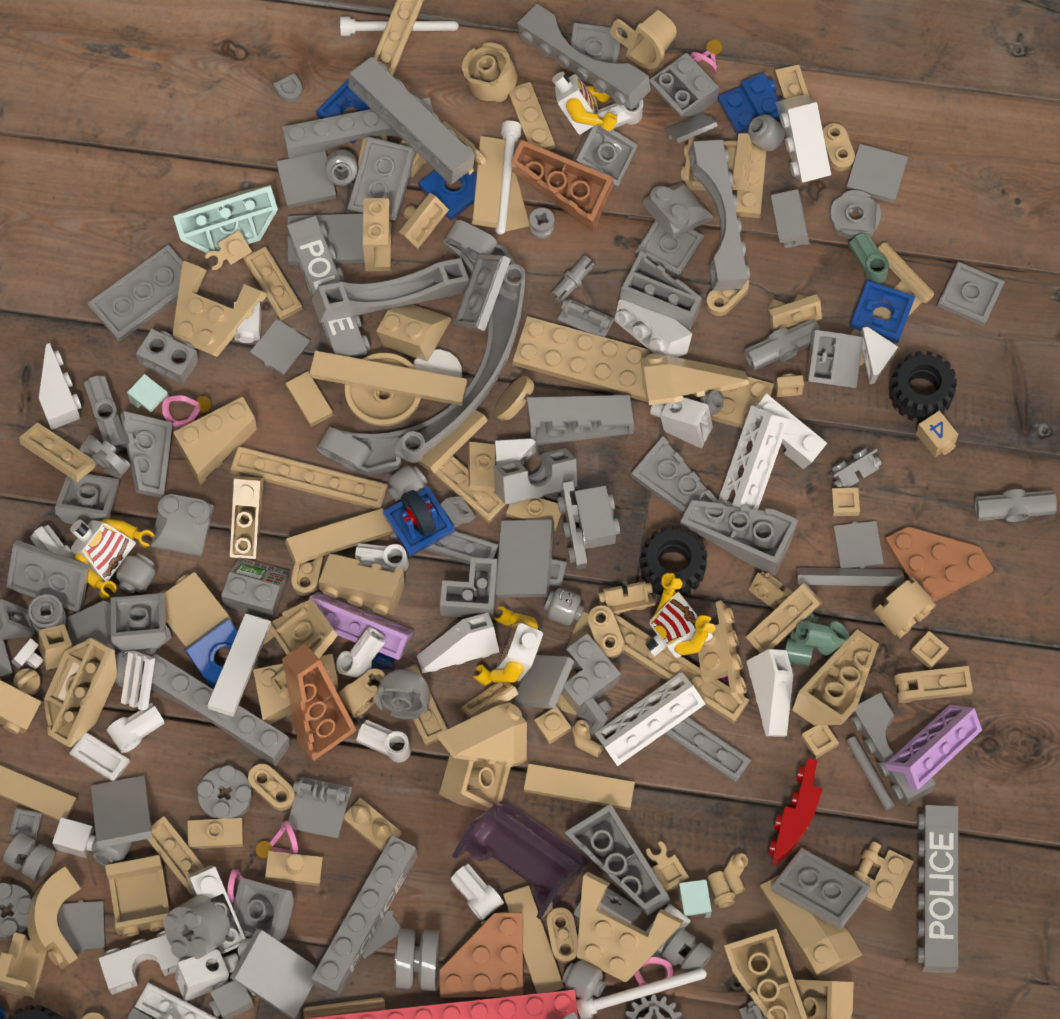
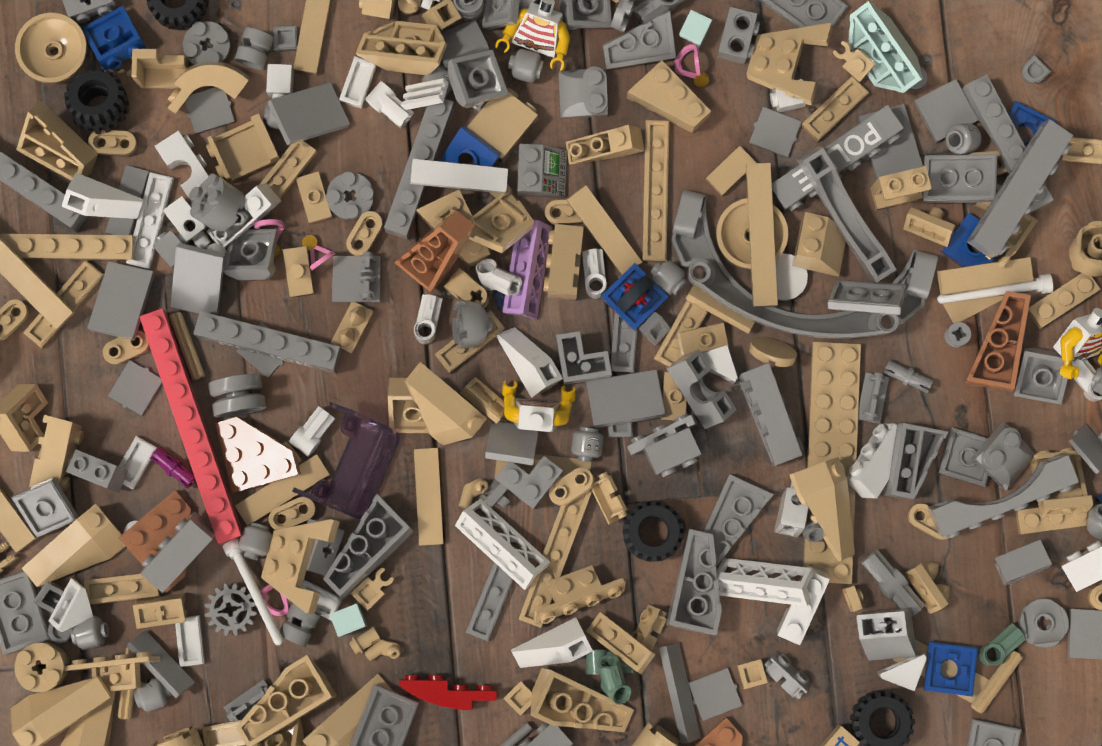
camera: 75 degrees right, 15 degrees up
(552, 725) = (477, 462): tan plate -> none
(677, 623) = (590, 548): torso -> none

